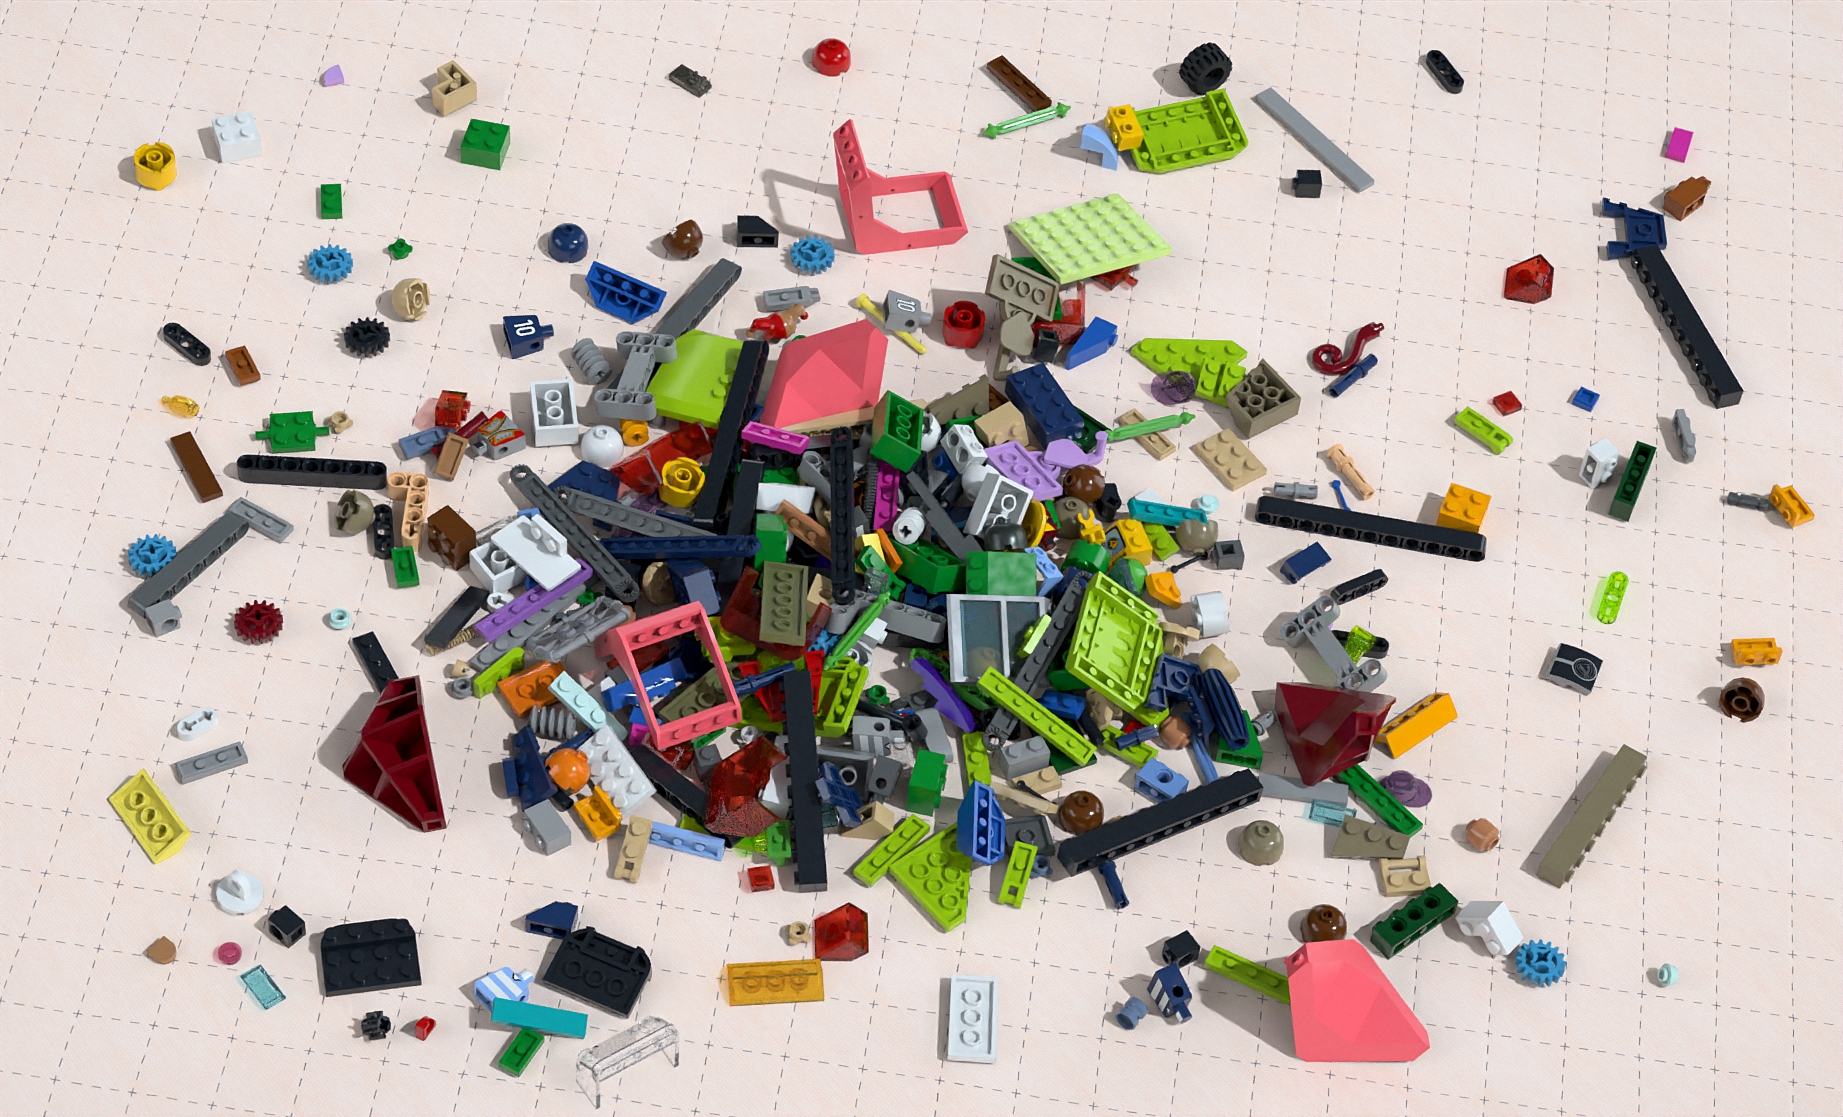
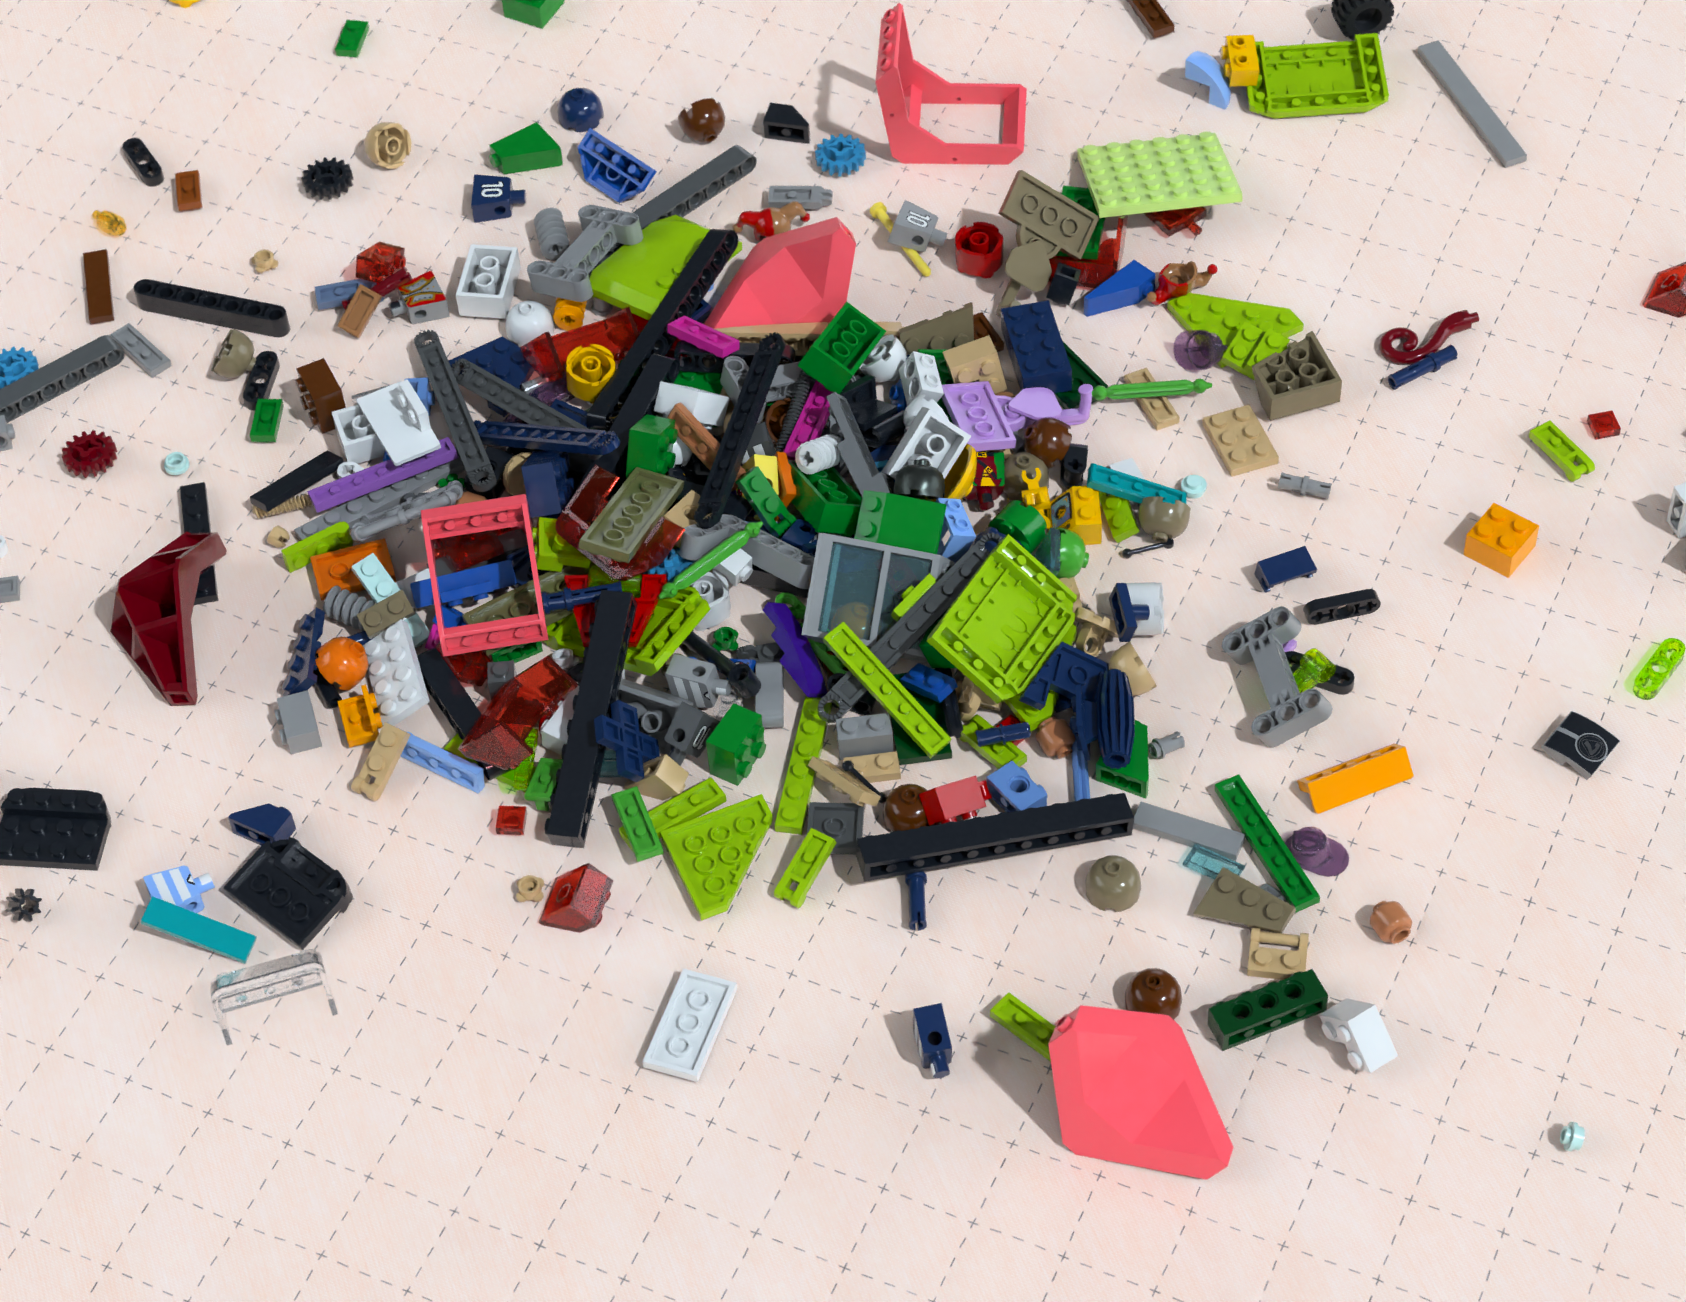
camera: 25 degrees right, 0 degrees up
(292, 432) = (211, 265): green plate -> none
(330, 263) = (321, 99): dark azure gear -> none
(400, 249) = (402, 94): green plate -> none
(415, 491) = (307, 344): light nougat beam -> none
(424, 1027) = (77, 916): red tile -> none
(459, 684) = (272, 557): light grey plate -> none
(510, 777) = (281, 657): dark blue beam -> none
(521, 1052) = (168, 964): green plate -> none
(536, 287) = (525, 151): none -> green slope
(590, 722) = (385, 614): none -> dark tan plate
(775, 982) = (482, 940): clear yellow slope -> none
(869, 863) = (637, 824): none -> bright green tile
(876, 582) = (755, 510): clear plate -> none
(981, 825) = (778, 804): blue wedge -> none
(1026, 120) = (1139, 43): bright green wheel -> none
(1044, 862) = (838, 857): sand blue plate -> none
(1118, 798) = (955, 800): none -> brick
(1131, 1013) = (879, 1054): sand blue wheel -> none
(1137, 328) = (1179, 280): none -> piece
(1164, 588) = (1100, 569): light orange wing -> none
(1181, 950) = (966, 992): black brick -> none
(1203, 620) = (1125, 612): none -> dark blue tile
(1228, 554) = (1194, 545): dark grey brick -> none
(1307, 183) = (1443, 149): black brick -> none
(1329, 726) = (1240, 761): dark red panel -> none
(1336, 485) = (1359, 487): blue hinge -> none
(1346, 465) = (1376, 466): light nougat pin -> none
(1371, 528) = (1382, 543): black beam -> none
(1451, 82) = (1654, 55): black beam -> none
(1540, 963) = (1410, 1090): dark azure gear -> none
(1591, 817) = (1539, 924): dark tan brick -> none

